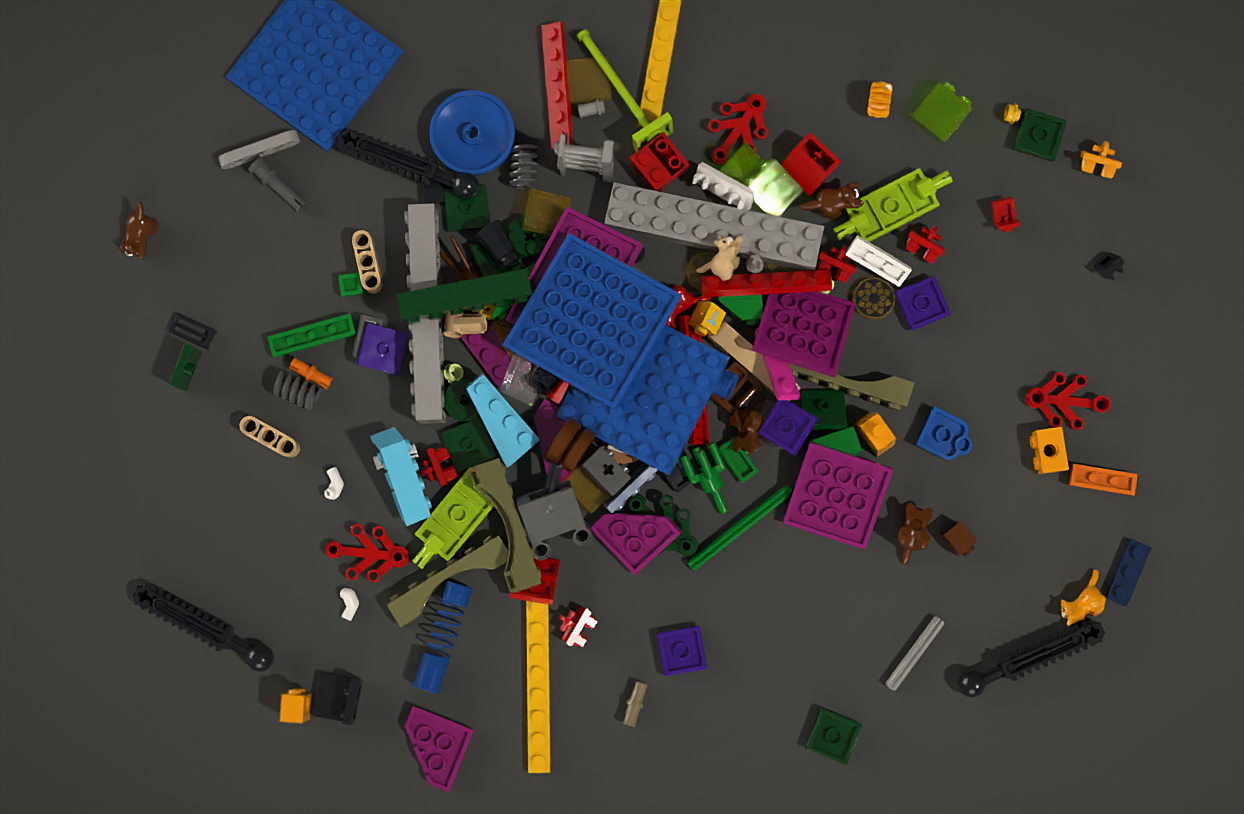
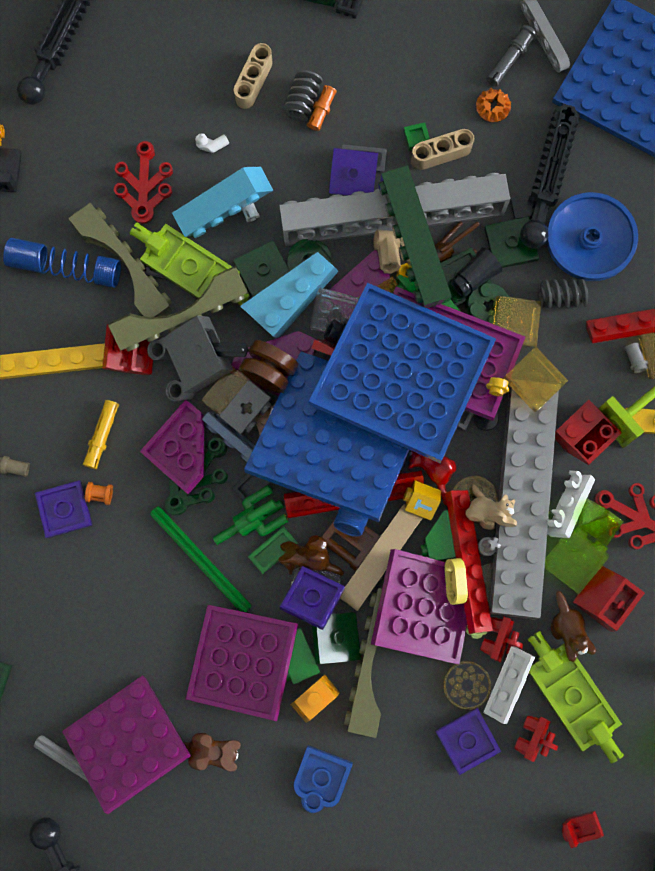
camera: 85 degrees right, 5 degrees down
(312, 335) = (360, 105): green plate -> none
(327, 217) = (499, 112): none -> orange gear
(351, 601) = (93, 172): white arm -> none
(444, 475) = (235, 238): red hips -> none
(454, 369) = (341, 245): yellowish green plate -> none
(574, 623) = (72, 393): hips -> none
(586, 158) = (581, 361): light grey fence -> none
(608, 202) = (535, 379): none -> clear yellow tile
(614, 237) = (497, 386): none -> yellow plate
(622, 614) = (99, 439): none -> yellow pin
(670, 616) = (98, 493): none -> orange bush
(781, 378) = (362, 585): dark pink plate -> none
(784, 296) = (456, 581): none -> light yellow beam
(900, 605) = (125, 744): none -> magenta plate
(959, 539) = (205, 806): reddish brown brick -> none

